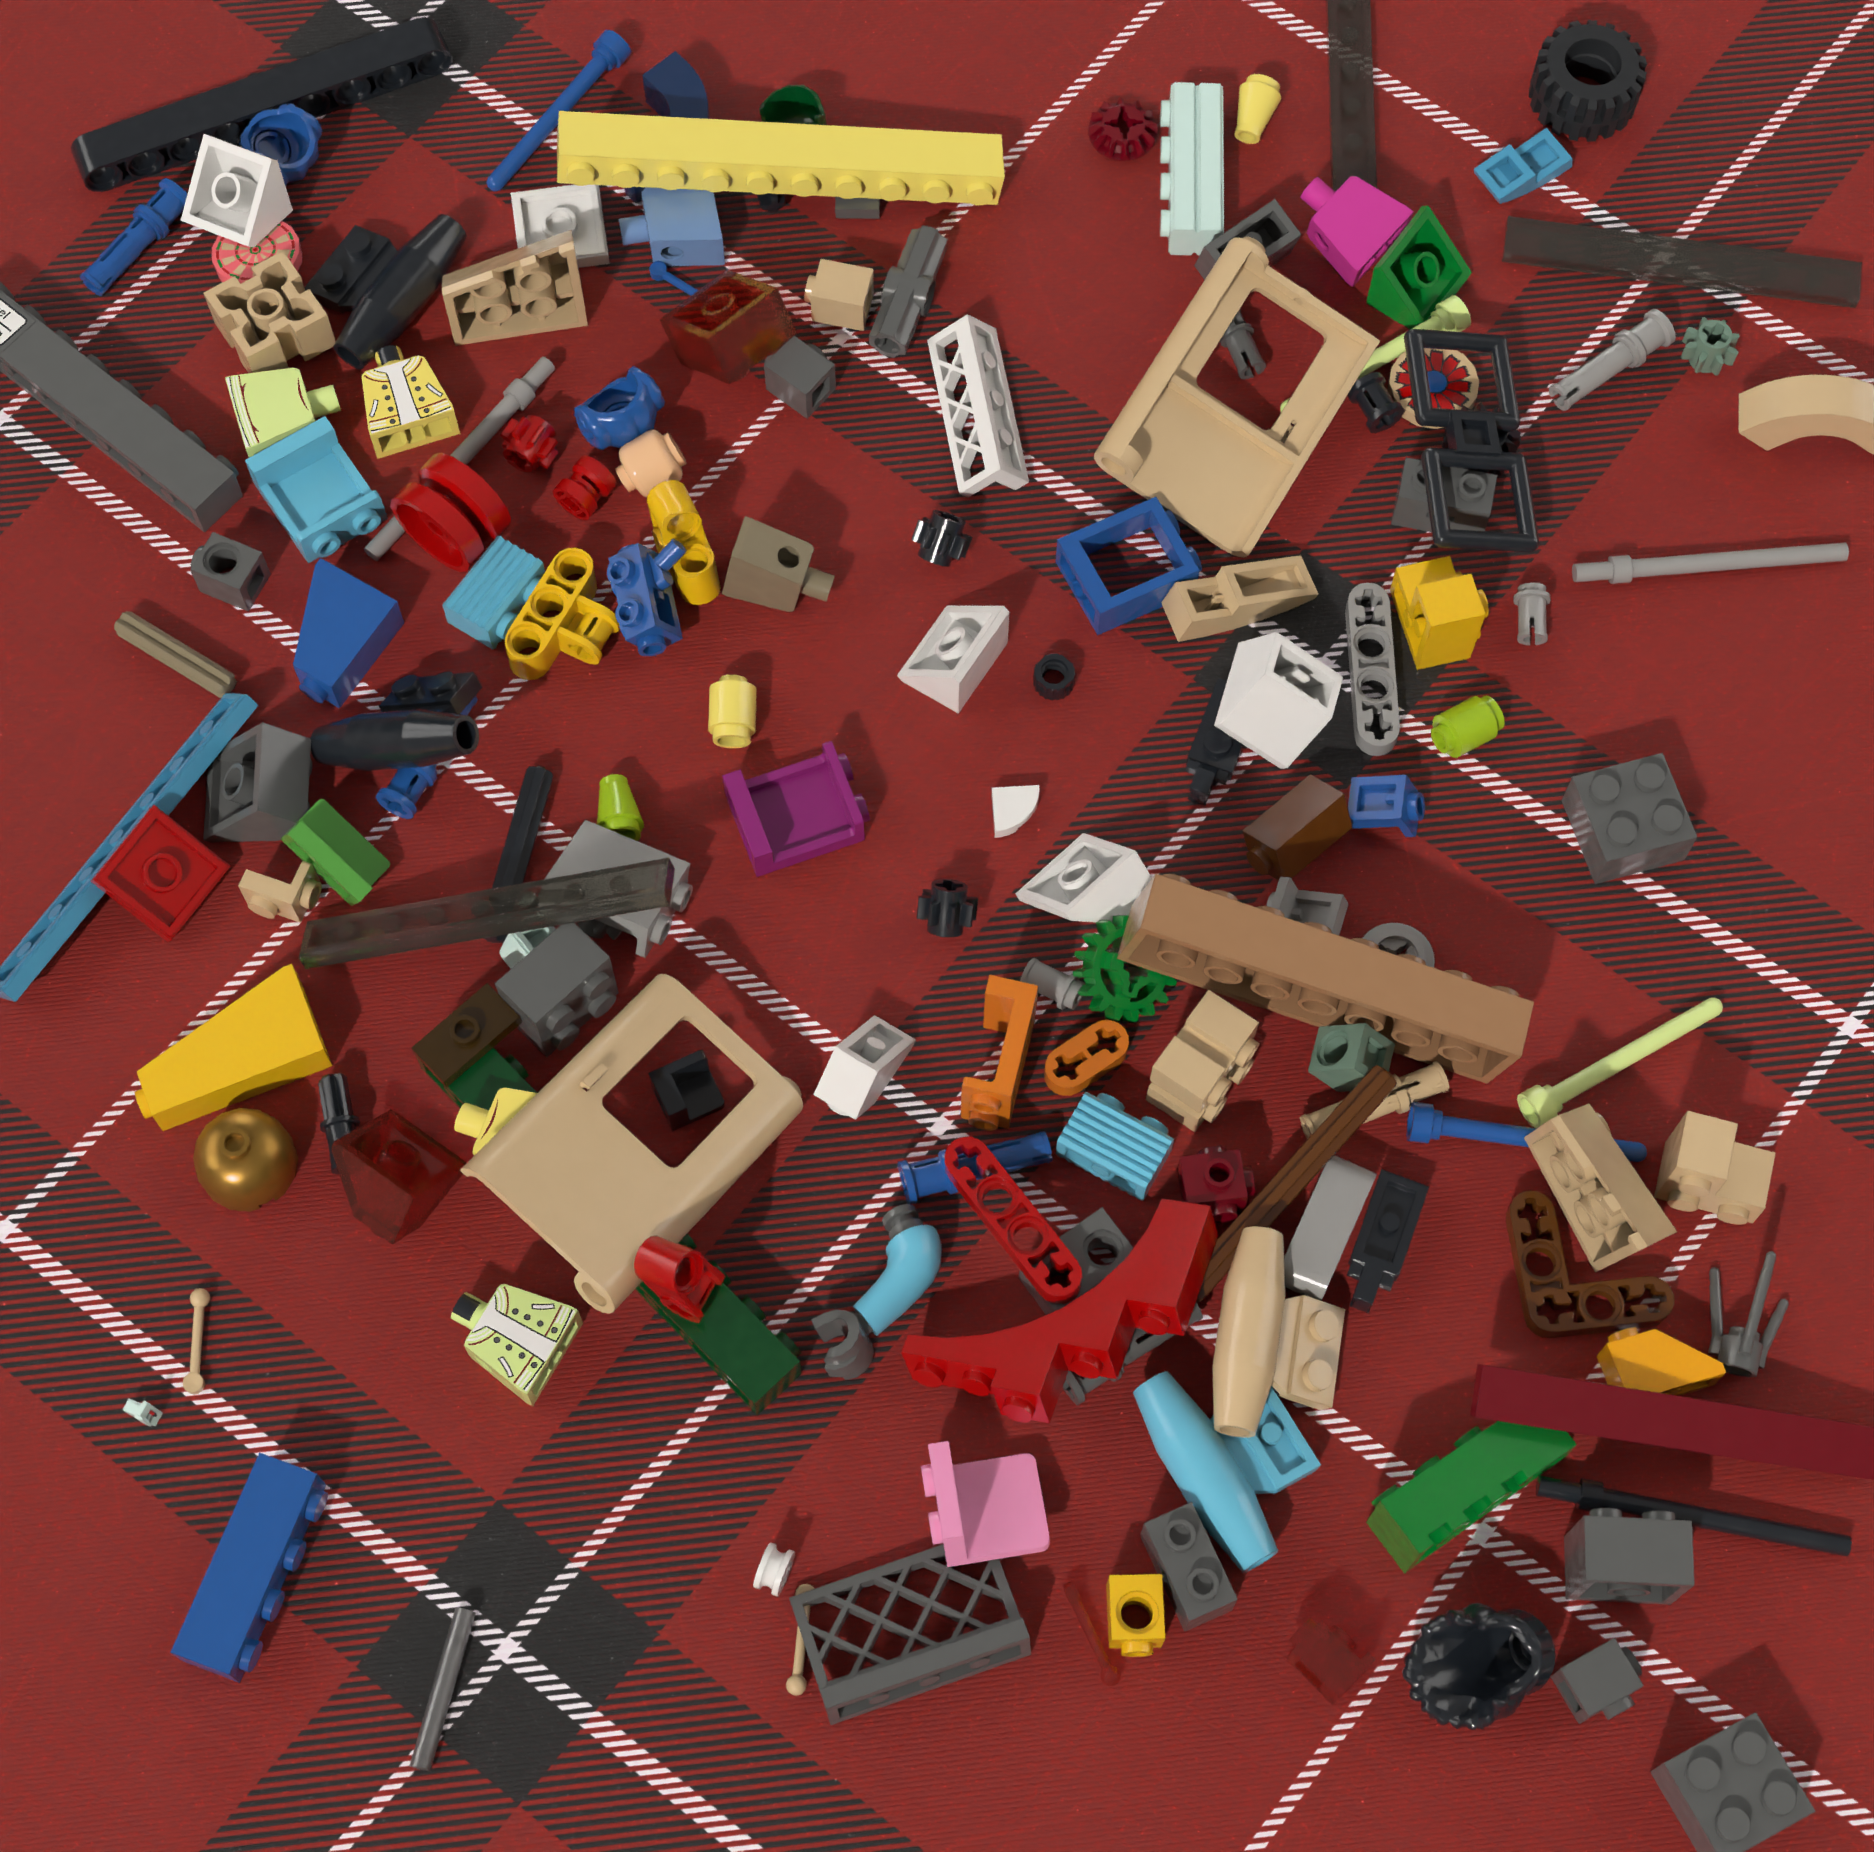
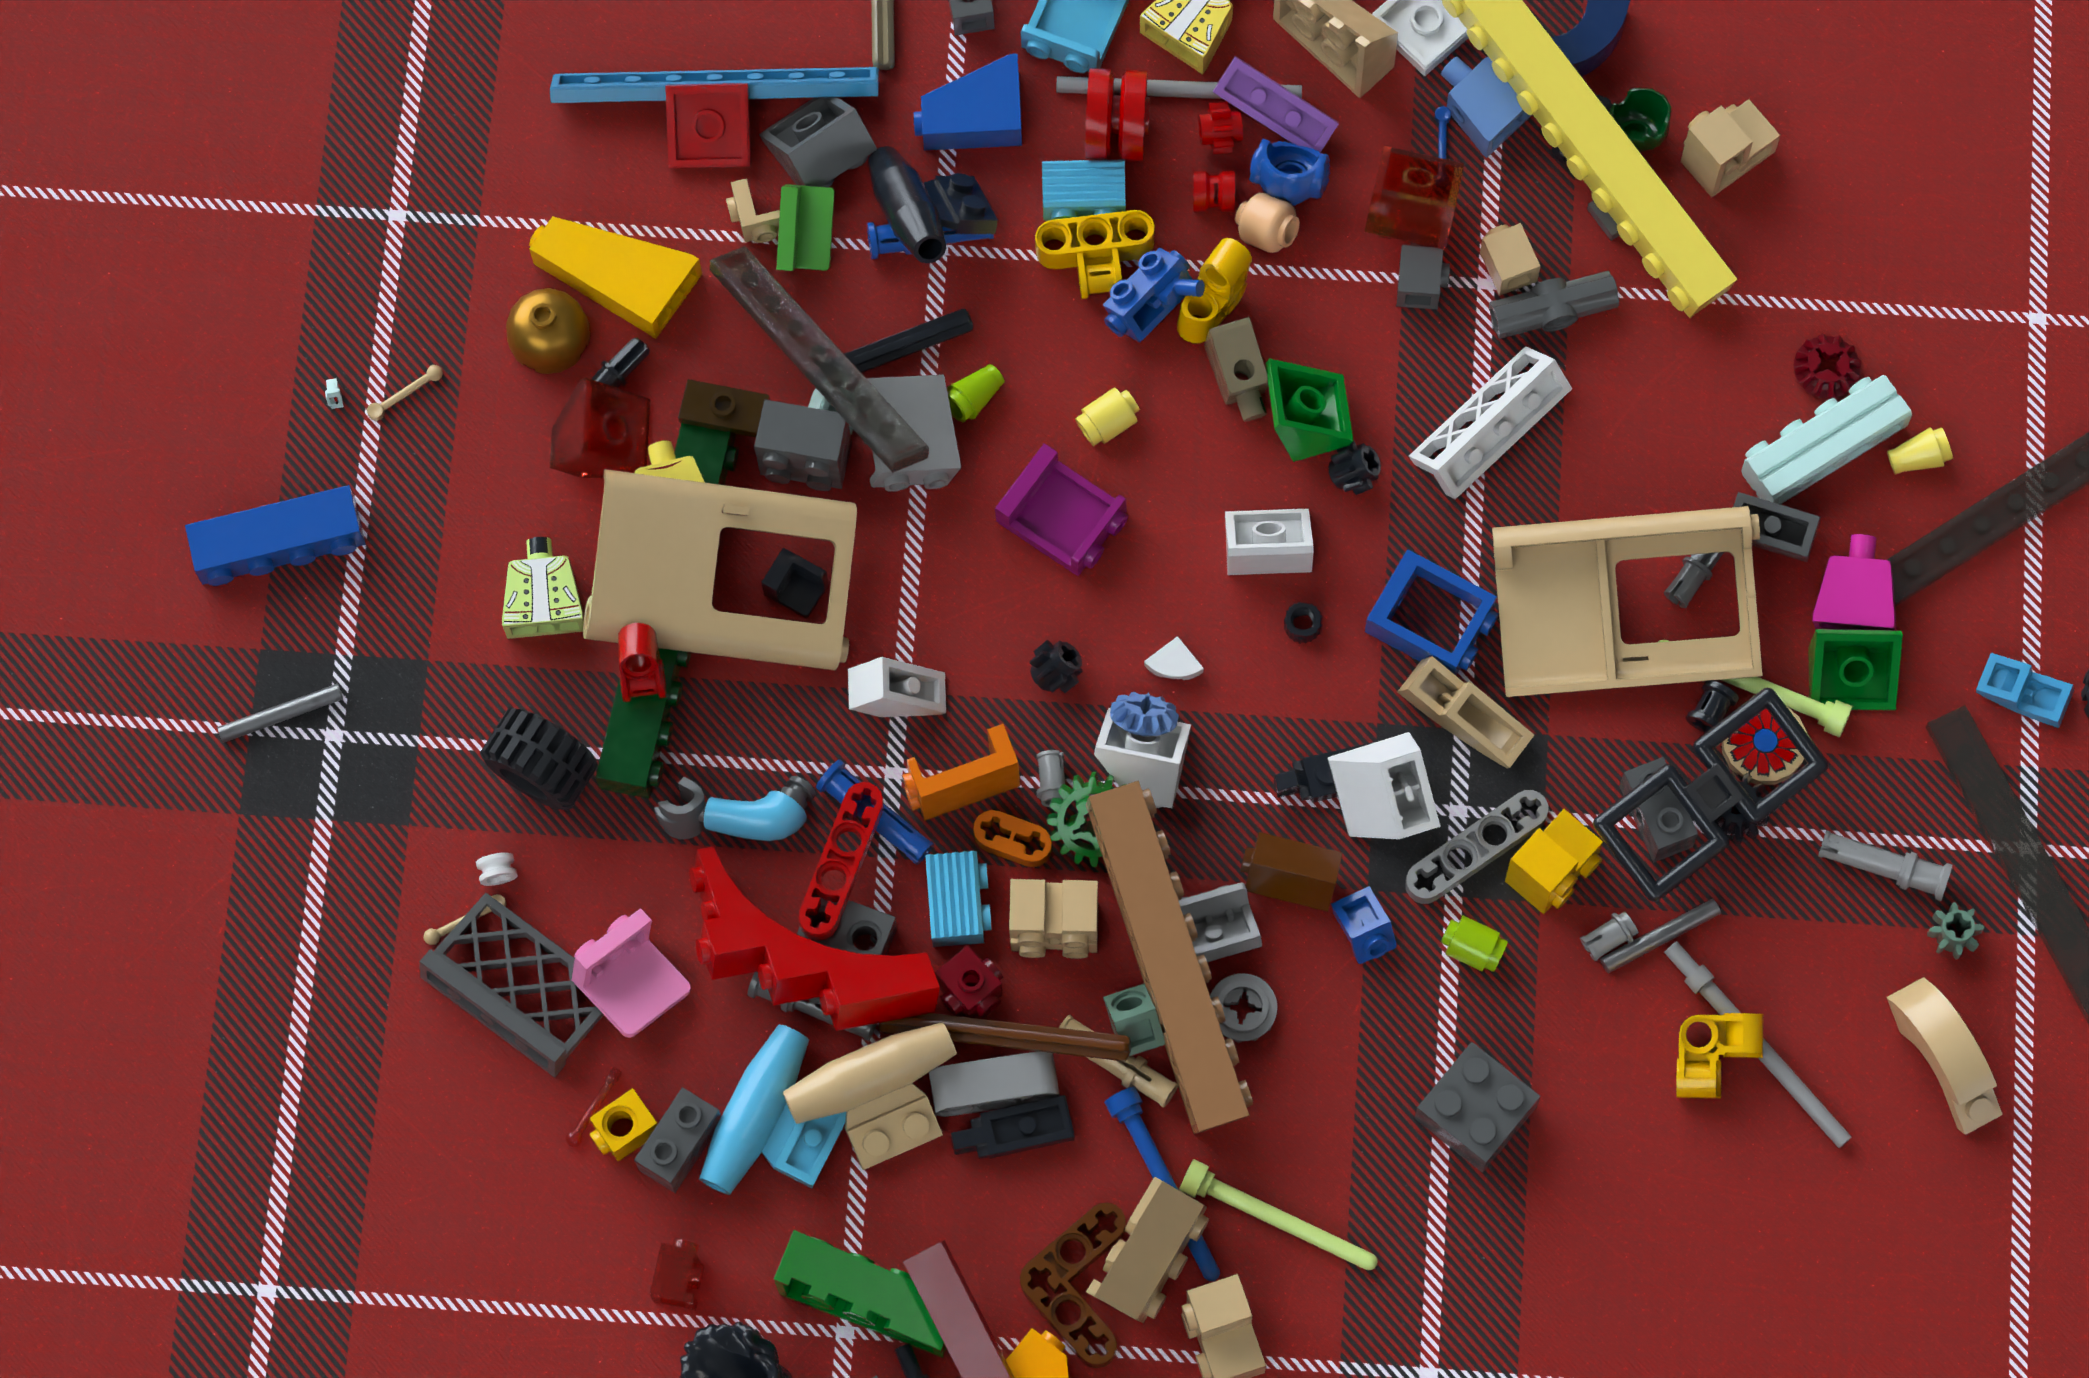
camera: 60 degrees right, 5 degrees up
(545, 385) = (1274, 106): none -> medium lavender plate
(698, 1445) = (539, 759): none -> black tyre
(863, 536) = (1308, 409): none -> green slope
(869, 73) = (1727, 145): none -> tan brick
(1051, 861) = (1144, 714): none -> medium blue gear
(1557, 575) = (1660, 935): none -> flat silver bar
(1708, 616) = (1732, 1036): none -> yellow piece

